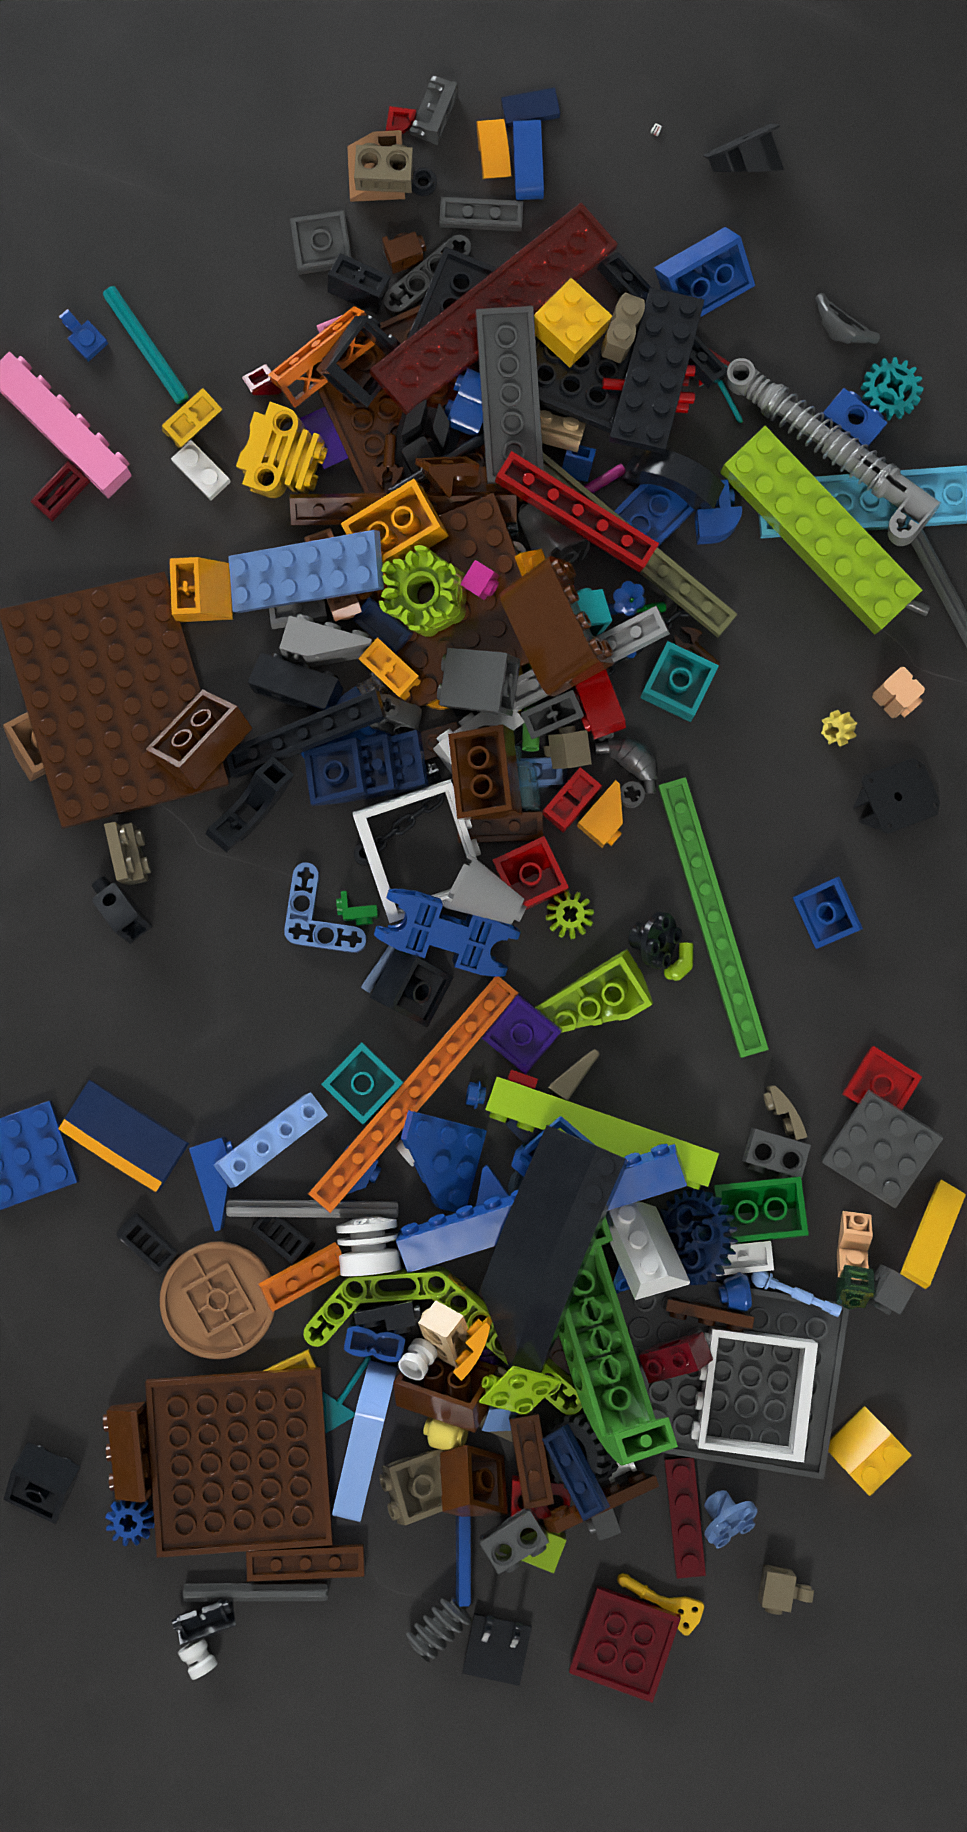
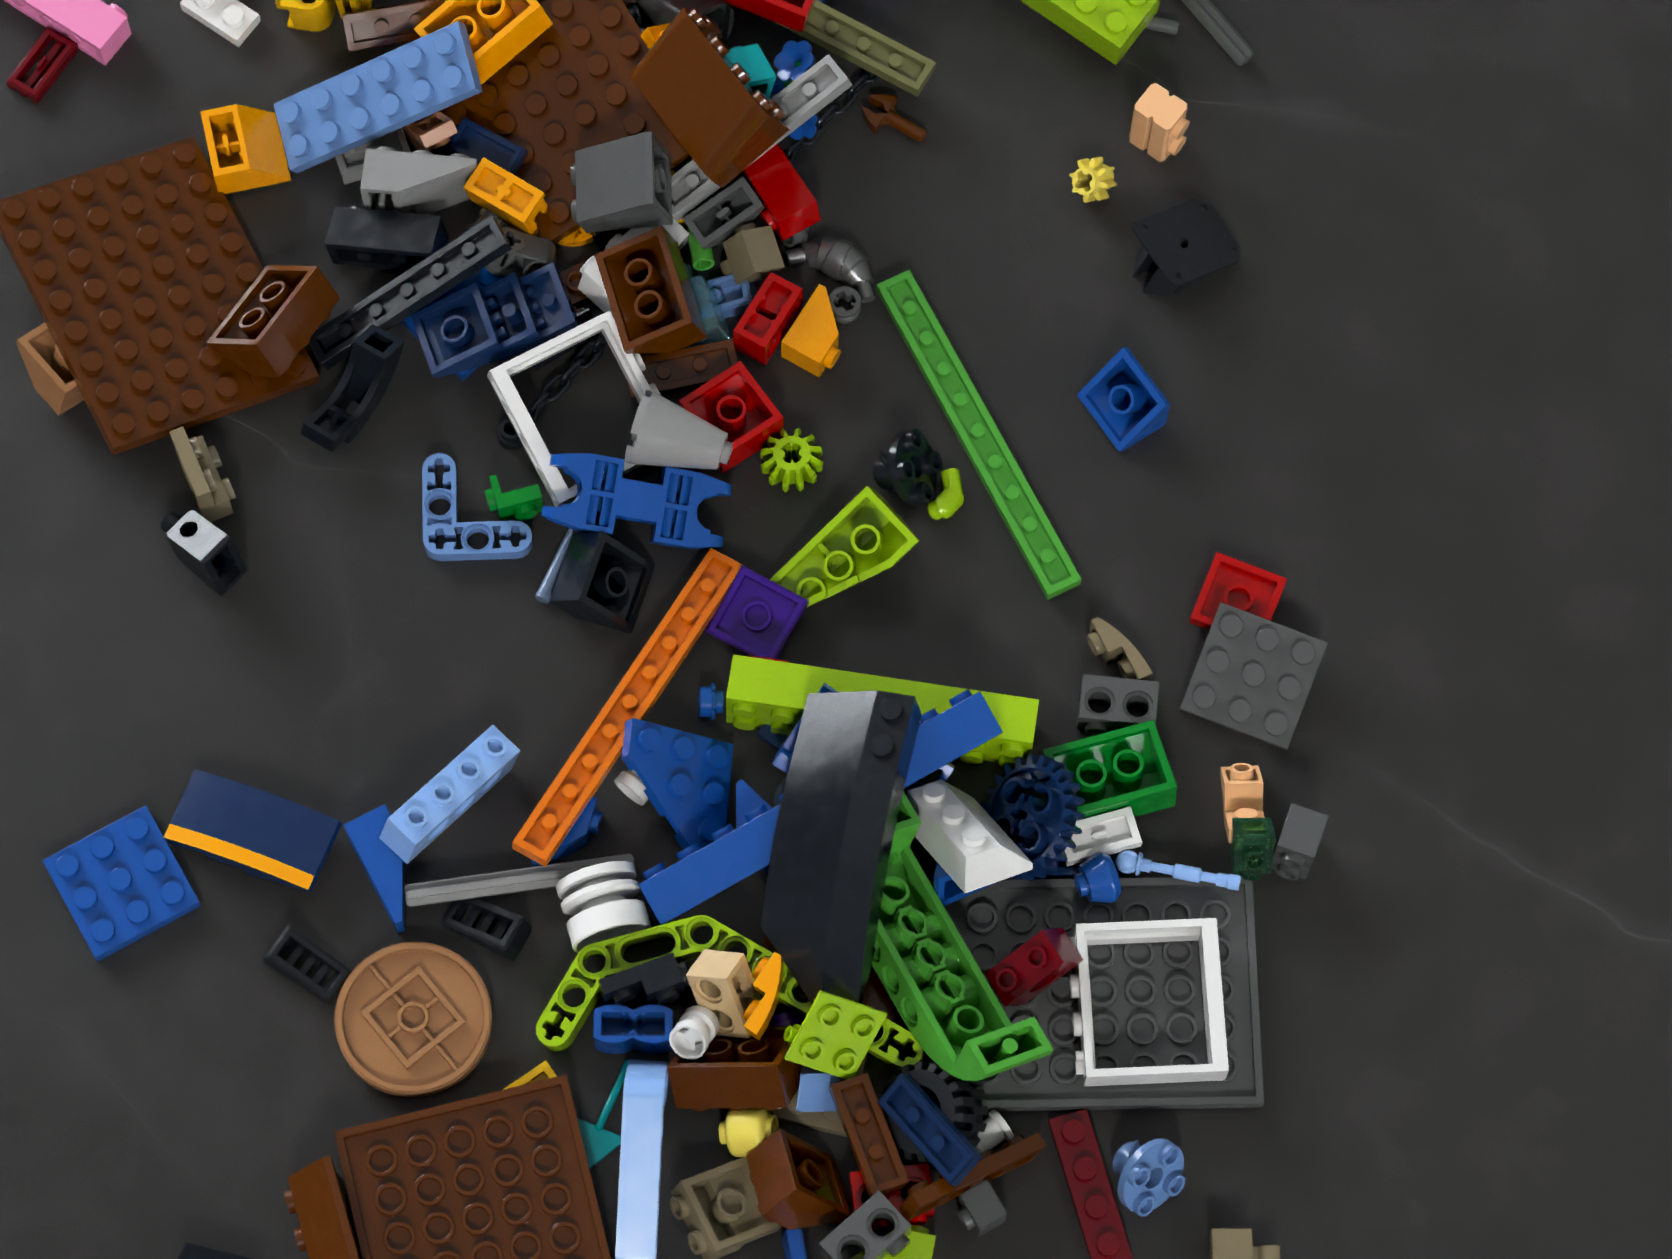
camera: 10 degrees left, 15 degrees down
(301, 1277) = (521, 965): orange plate -> none
(362, 1083) = (557, 705): teal brick -> none
(405, 579) = (522, 67): lime piece -> none
(480, 580) = (602, 66): dark pink plate -> none
(569, 1080) = (840, 646): dark tan slope -> none
(679, 681) = (878, 156): teal brick -> none
(708, 1314) = (1064, 912): reddish brown plate -> none
(867, 1450) = (1314, 1058): yellow slope -> none
(933, 1234) = (1339, 761): yellow tile -> none

